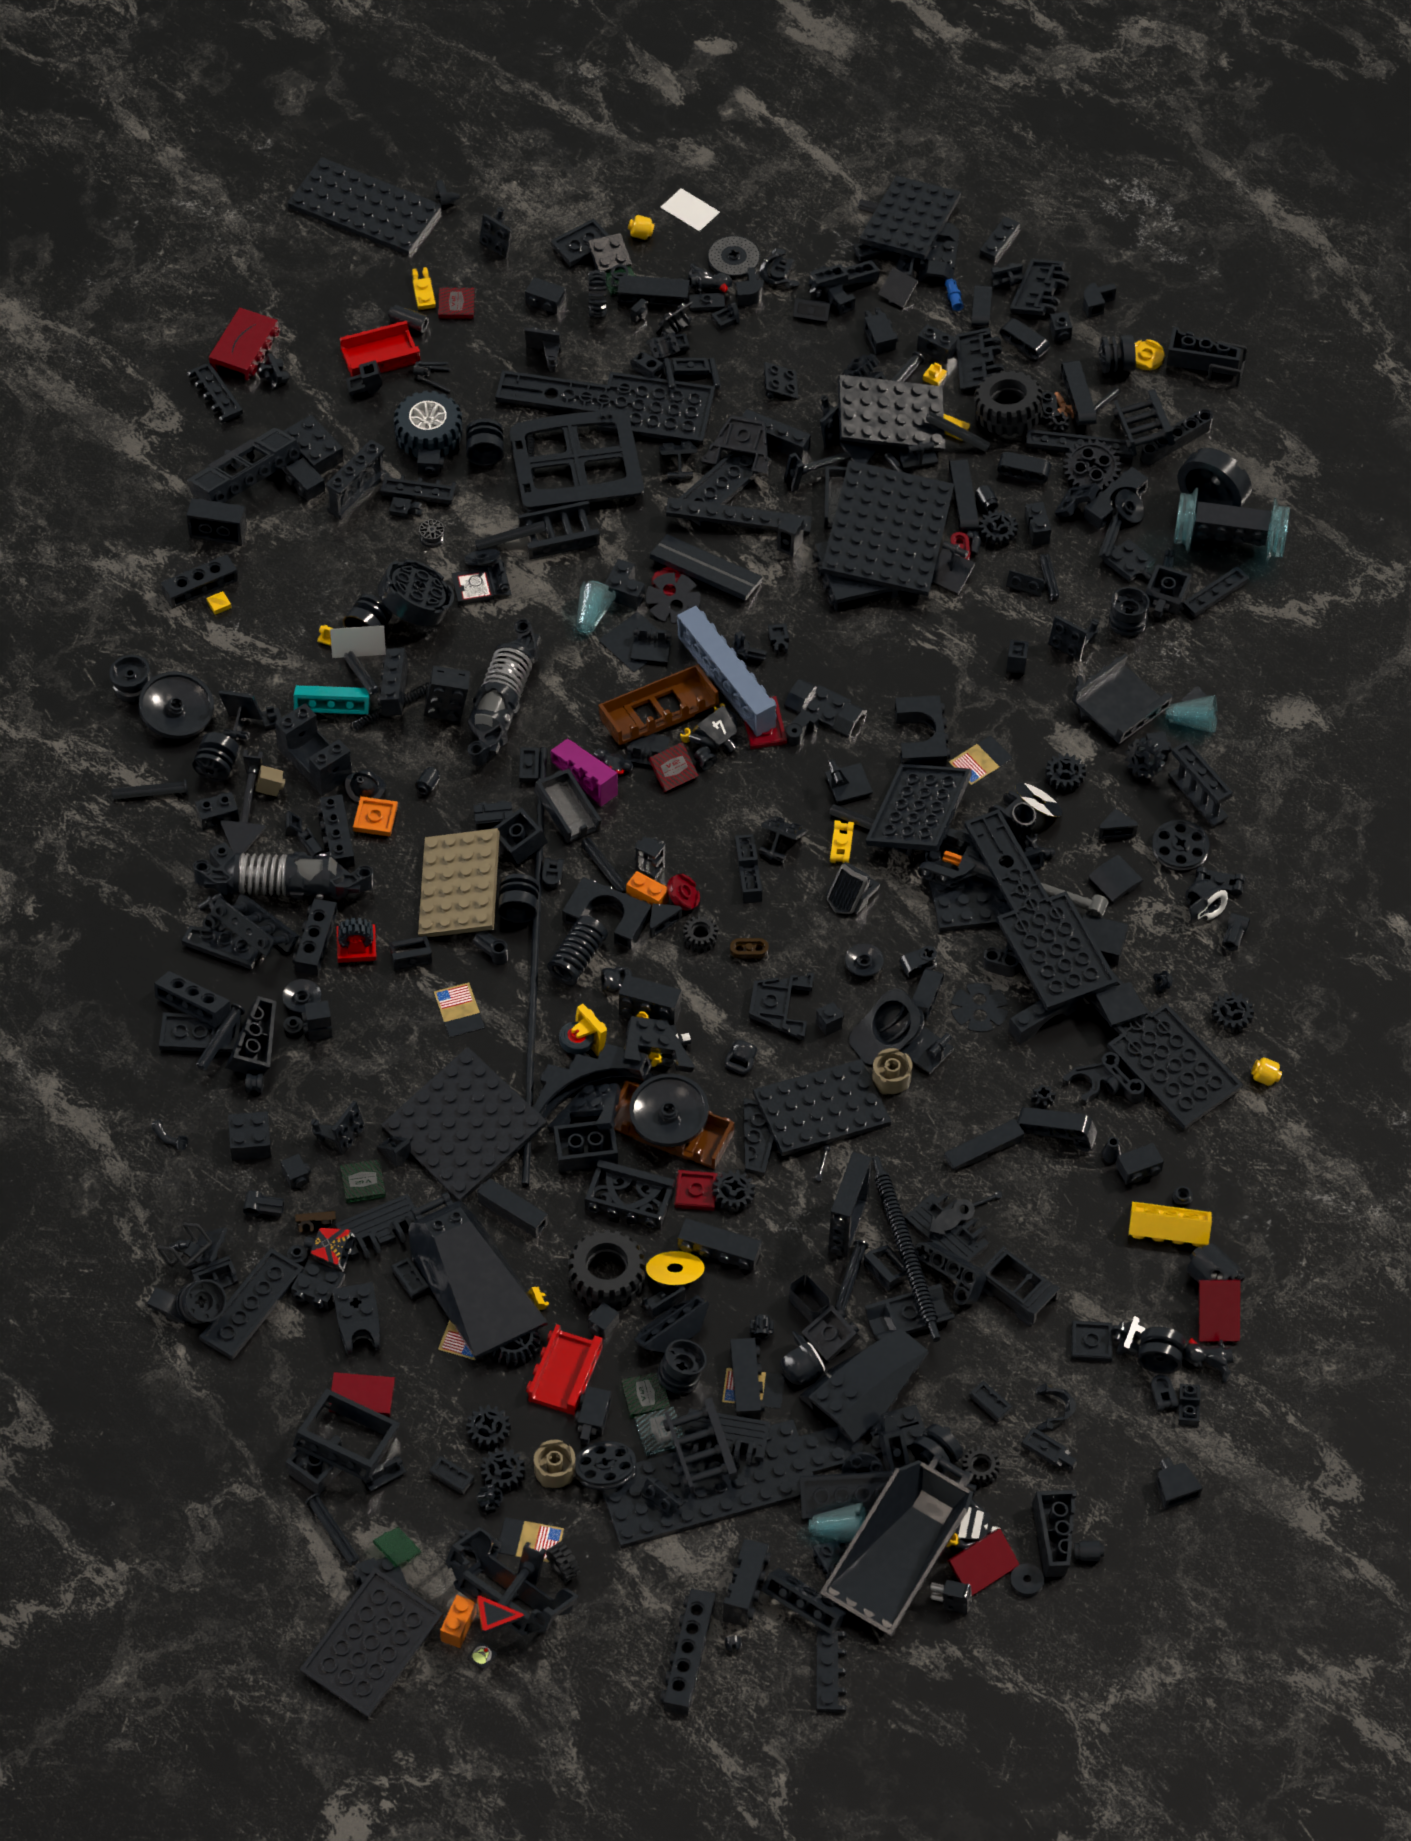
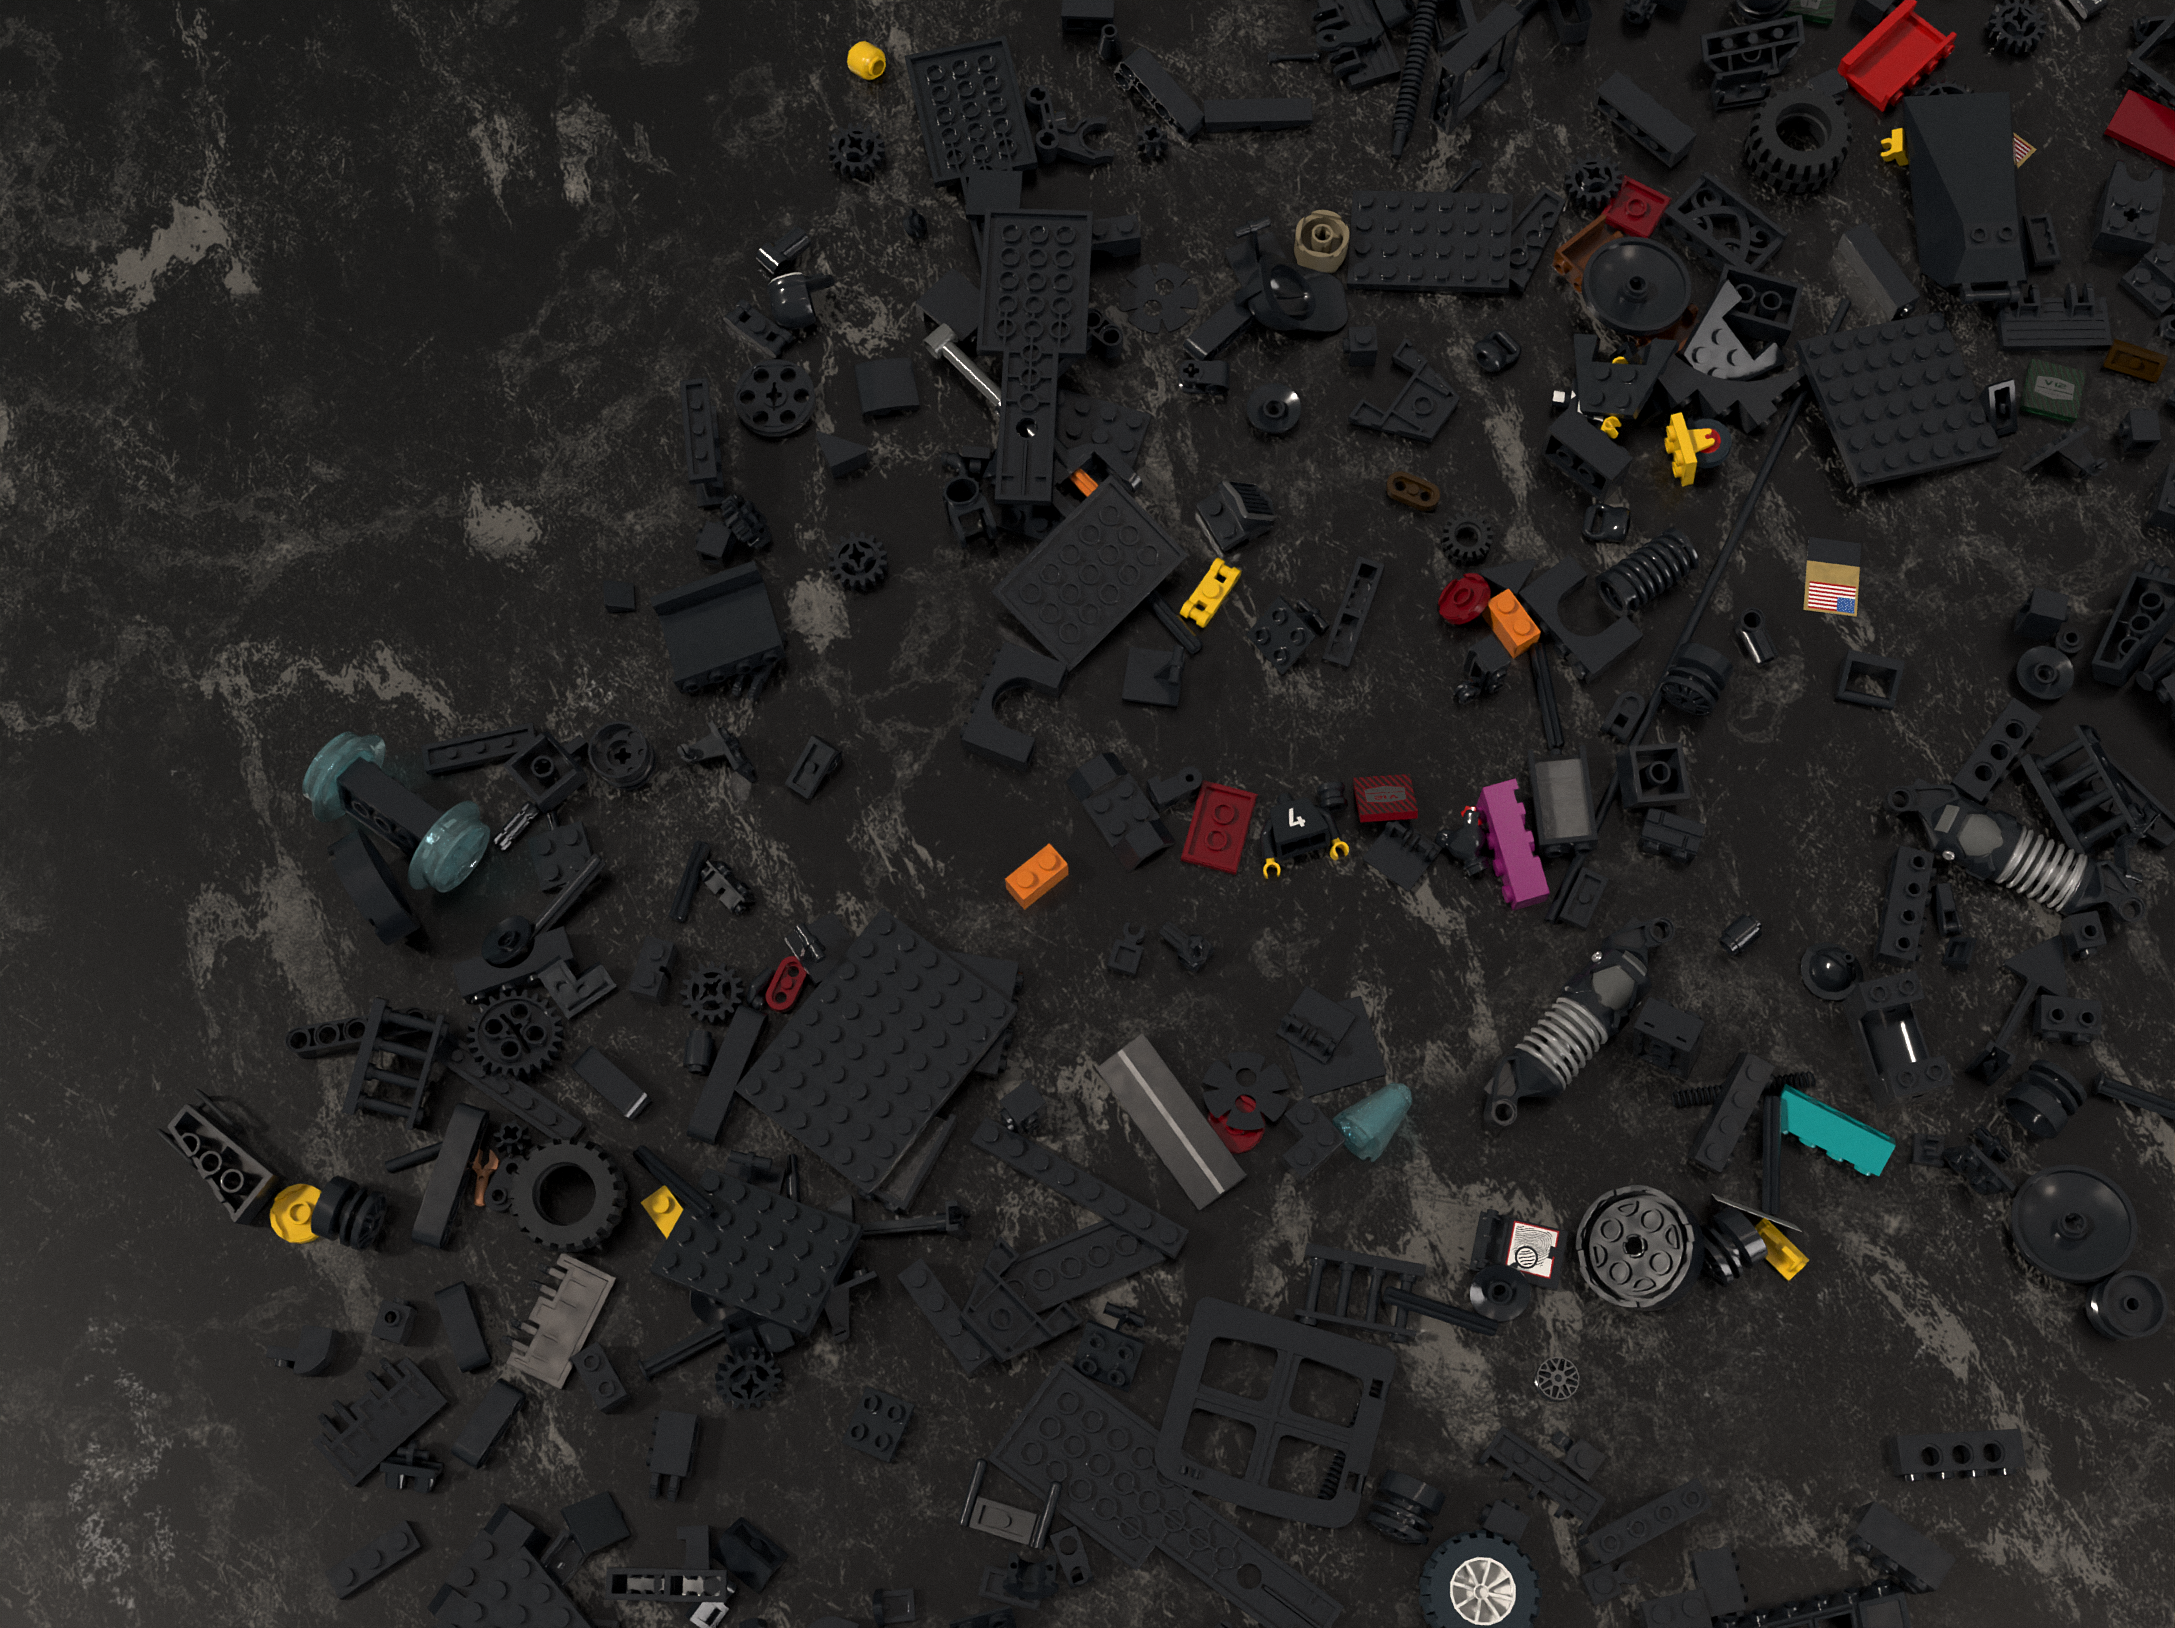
camera: 150 degrees left, 15 degrees up
(218, 602) = (1936, 1403): yellow tile -> none
(269, 781) = (1974, 1027): dark tan brick -> none
(331, 1247) = (2132, 308): torso -> none
(356, 941) = (1940, 722): plate -> none
(375, 816) = (1837, 911): orange plate -> none
(459, 883) = (1765, 743): dark tan plate -> none
(658, 1271) = (1734, 108): yellow sticker -> none
(690, 688) = (1417, 907): reddish brown window -> none
(727, 670) = (1239, 910): sand blue brick -> none
(852, 650) = (1036, 876): none -> orange brick
(934, 374) = (637, 1327): yellow tile -> none
(954, 295) = (515, 1471): blue pin -> none
(982, 758) = (954, 640): sticker -> none
(1050, 807) = (933, 503): sticker -> none
(1194, 713) = (636, 563): clear light blue cone -> none

